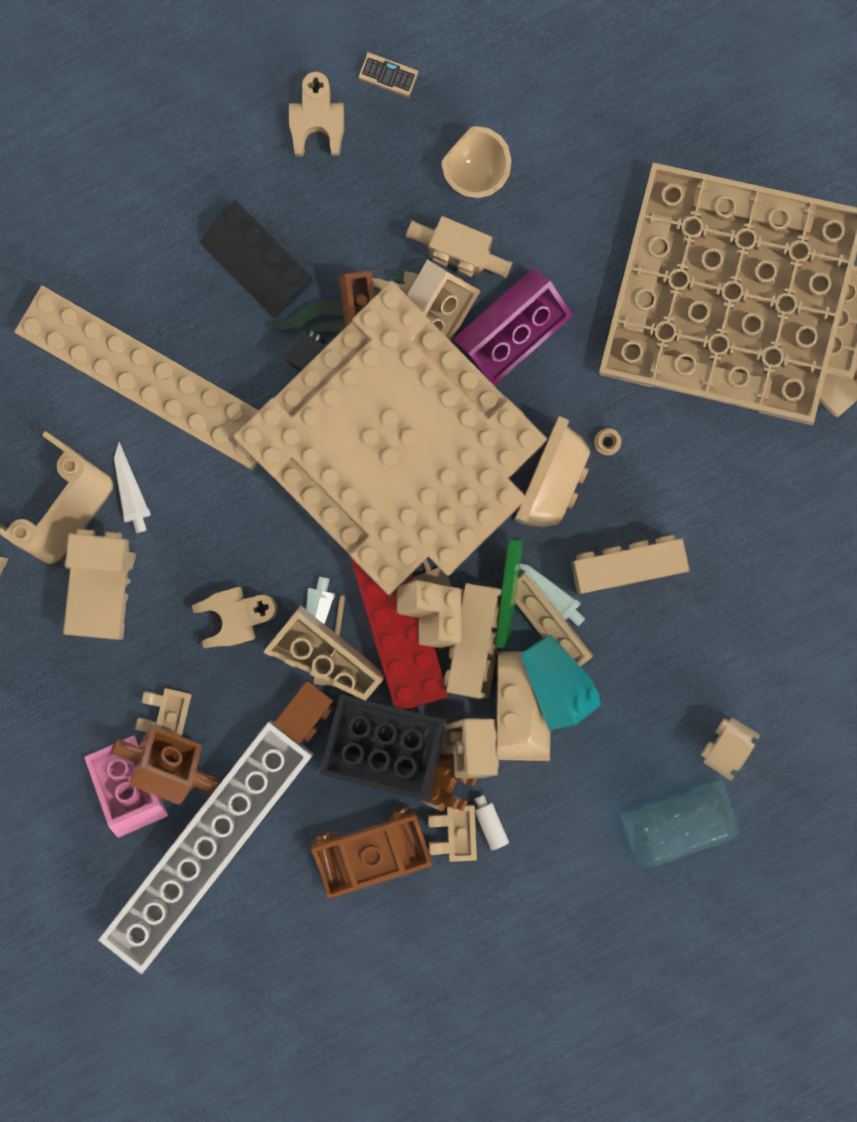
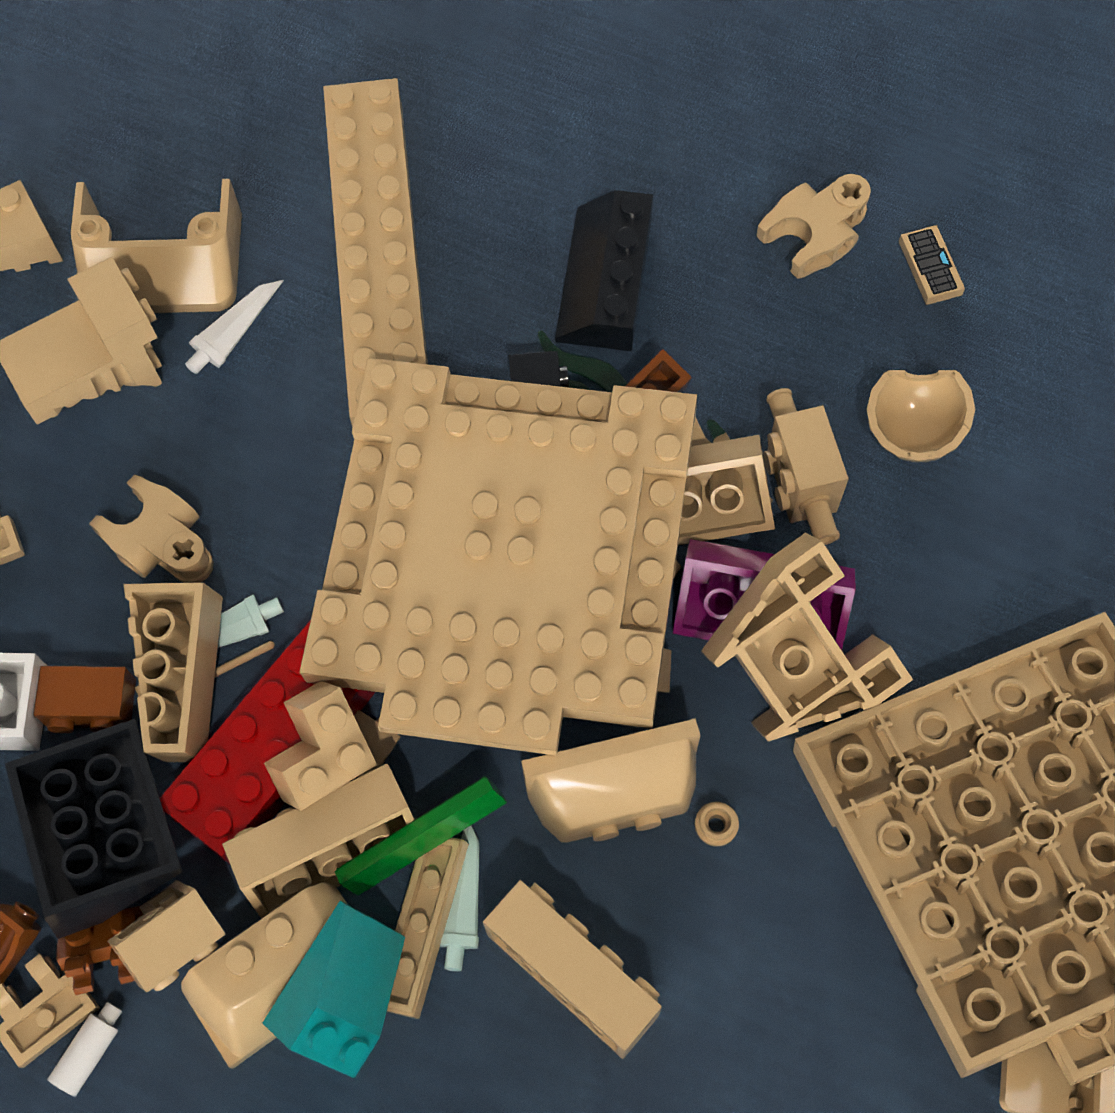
camera: 55 degrees right, 20 degrees down
(557, 341) = (792, 651): none -> tan wedge

